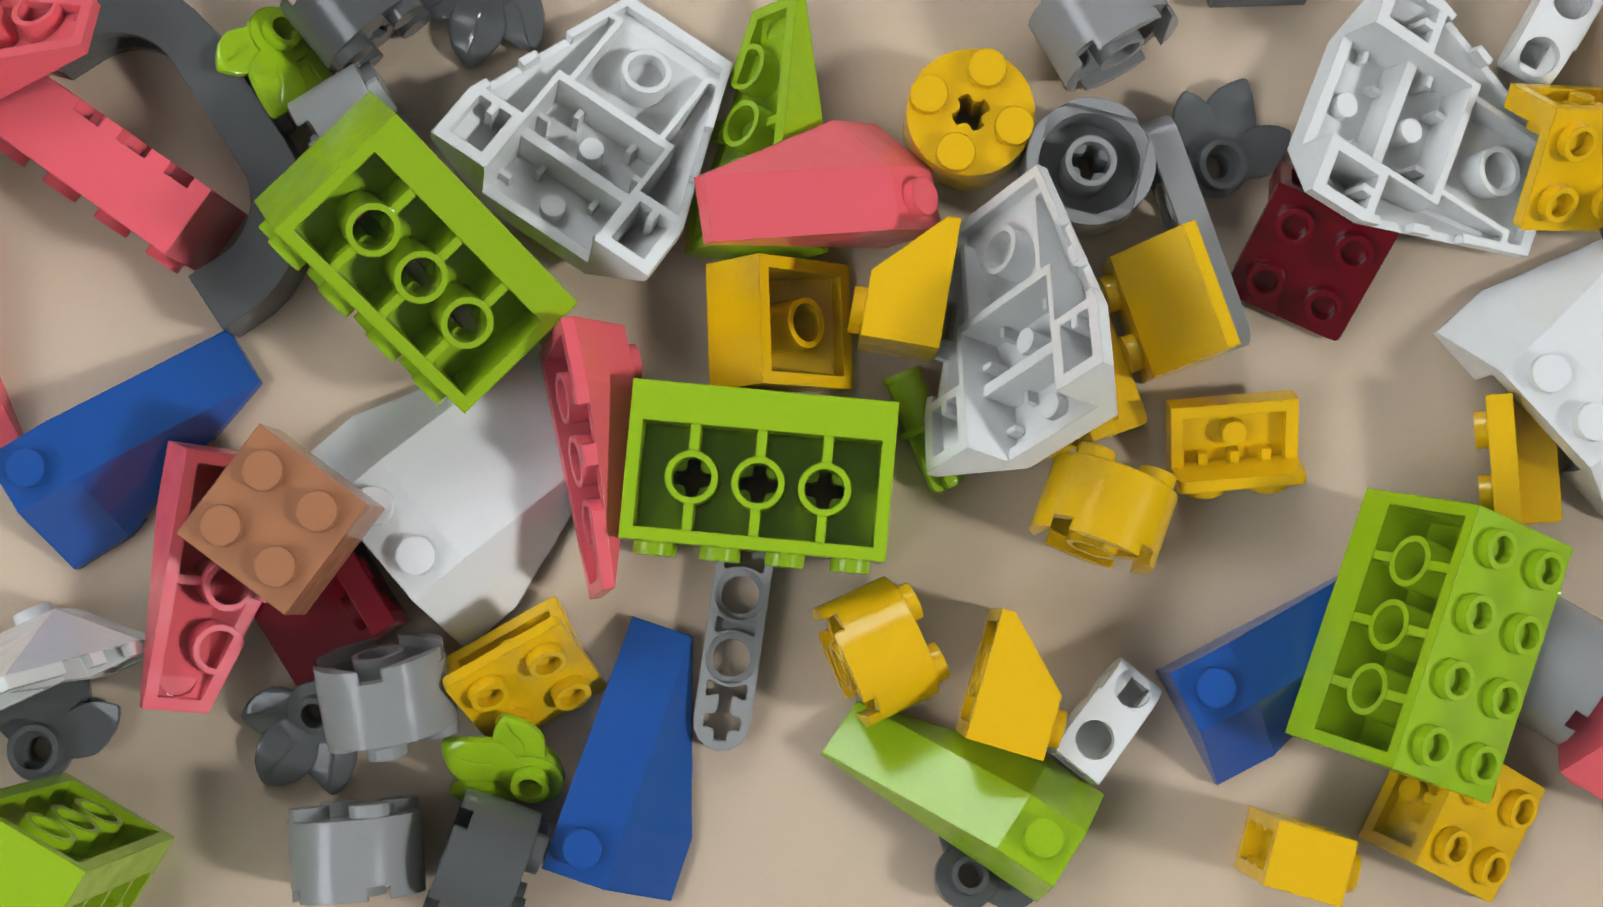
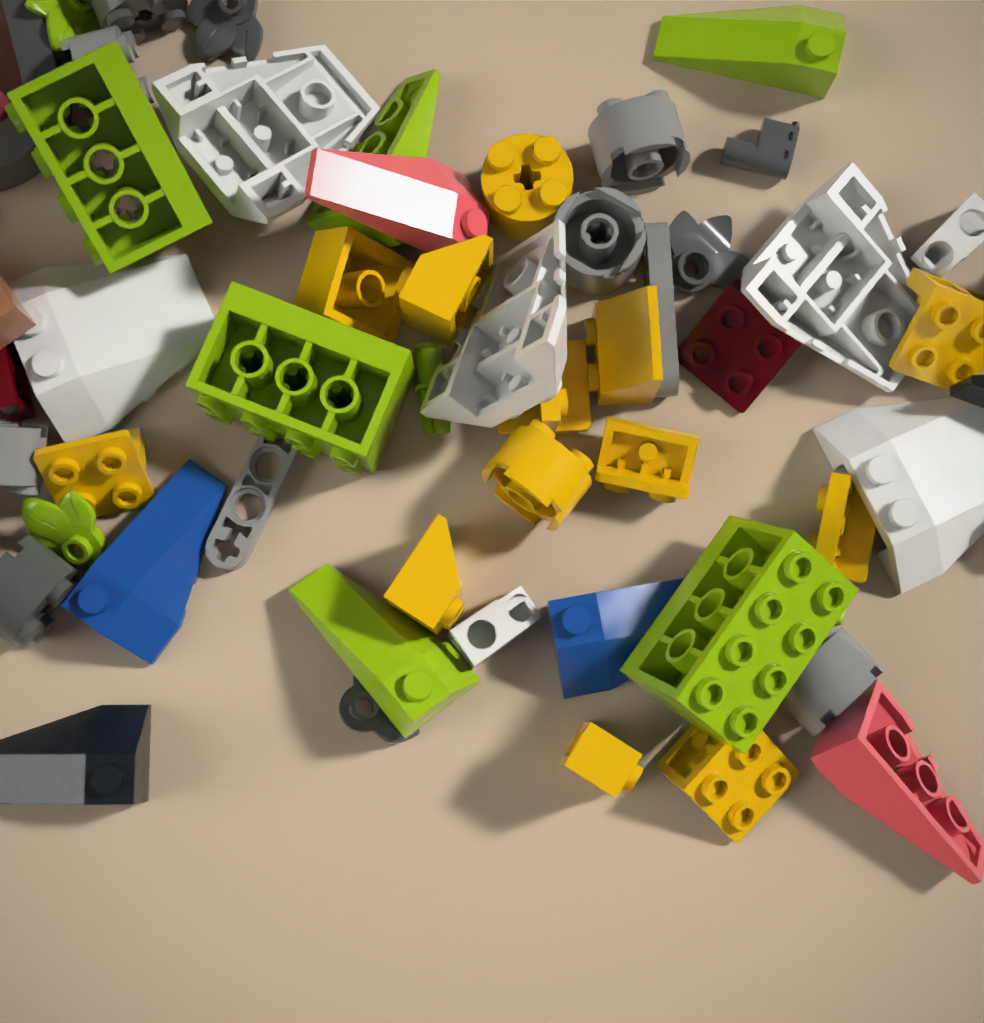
camera: 20 degrees right, 5 degrees down
(589, 395) = (205, 278): coral wedge -> none
(880, 649) = (349, 525): yellow brick -> none

